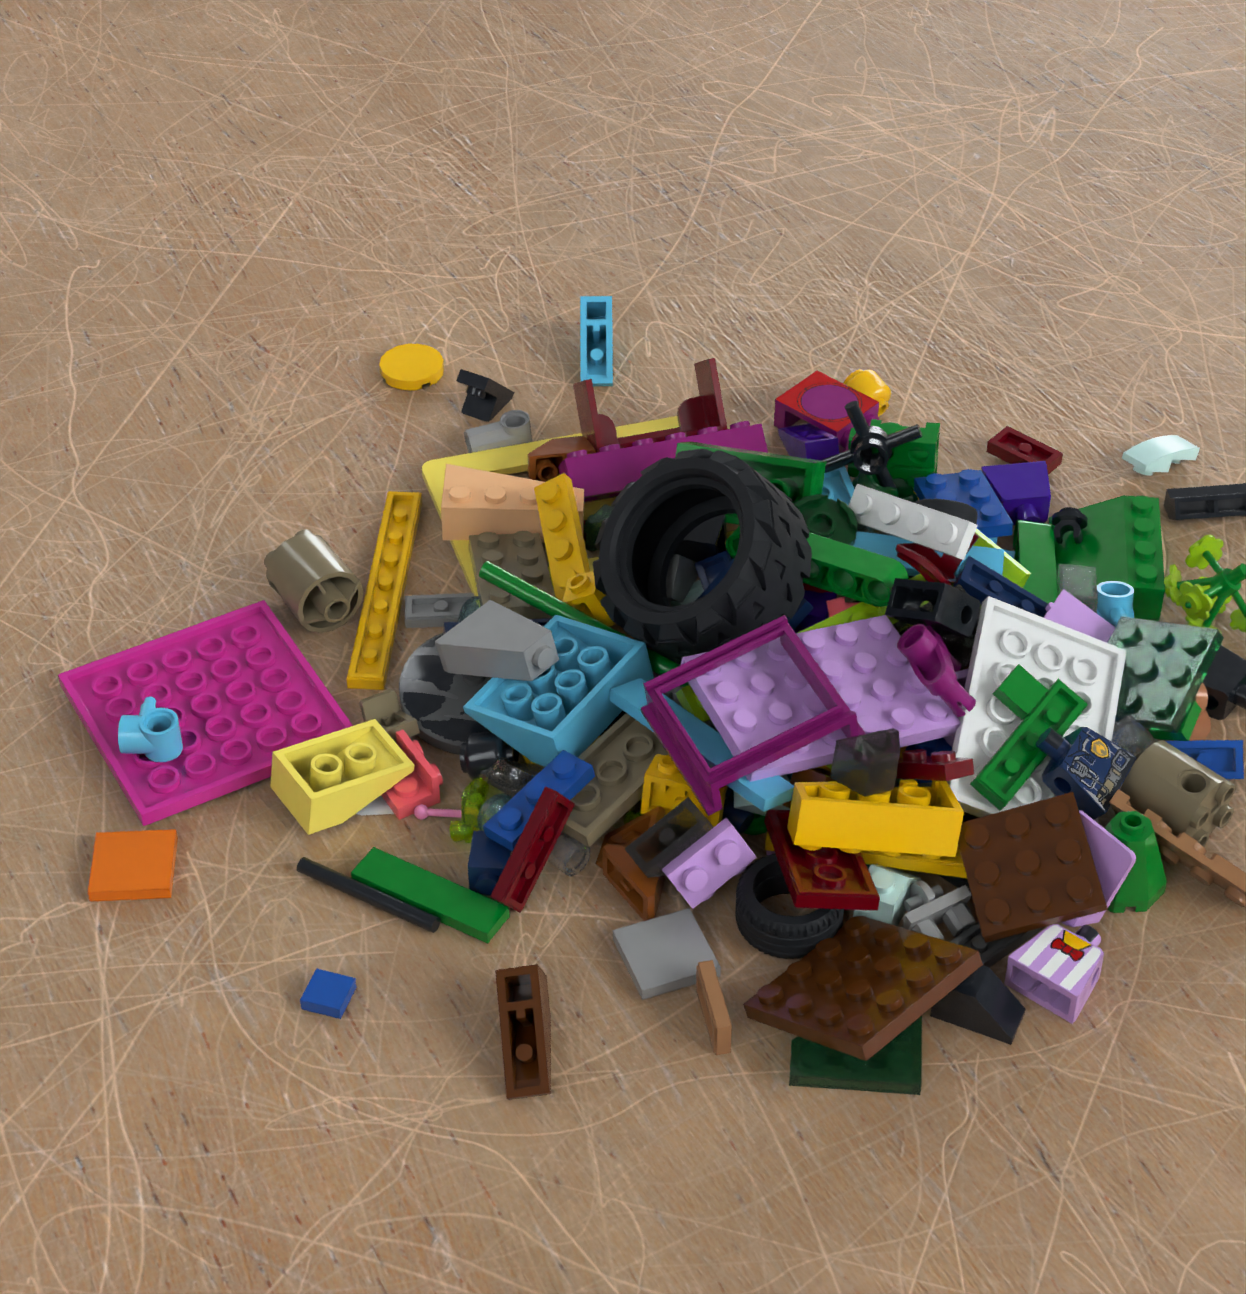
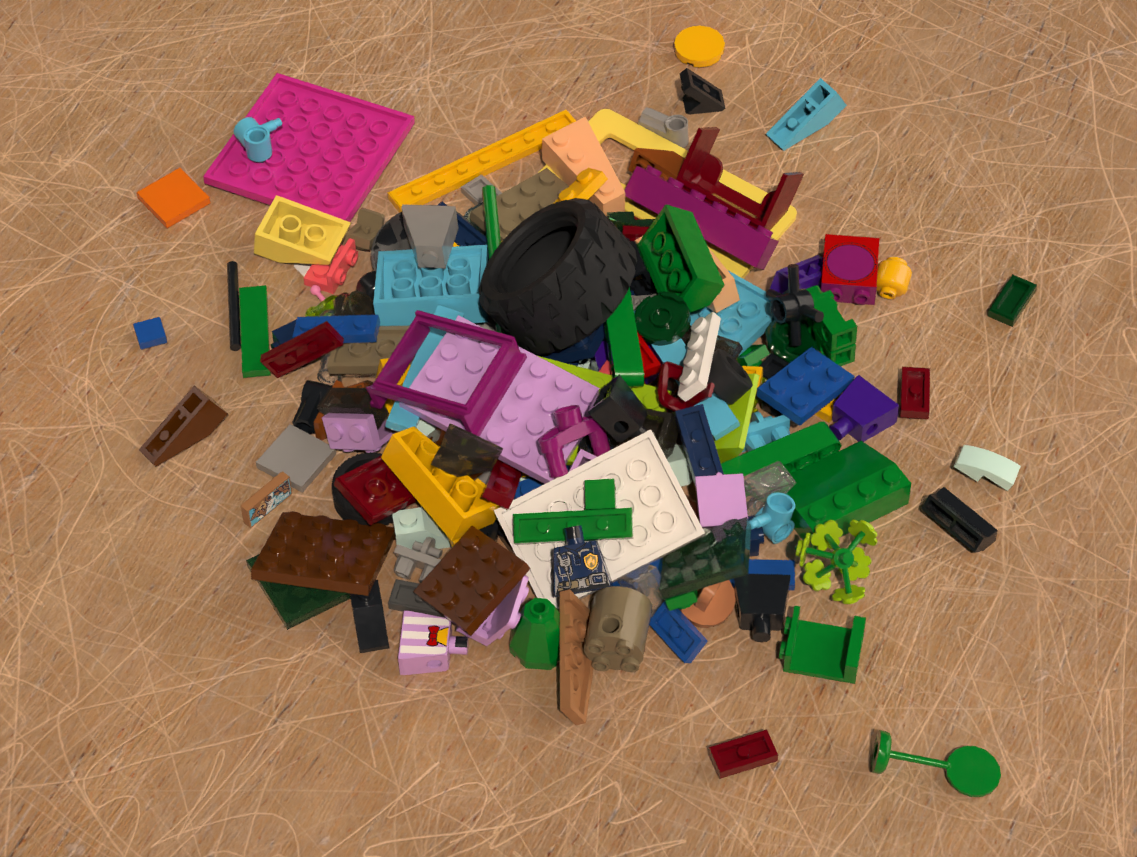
camera: 55 degrees right, 10 degrees up
(314, 582) = (440, 126): dark tan cylinder -> none
(602, 888) = (307, 411): none -> black piece
(962, 345) = (1012, 300): none -> dark green tile
(1069, 520) = (840, 451): black plate -> none

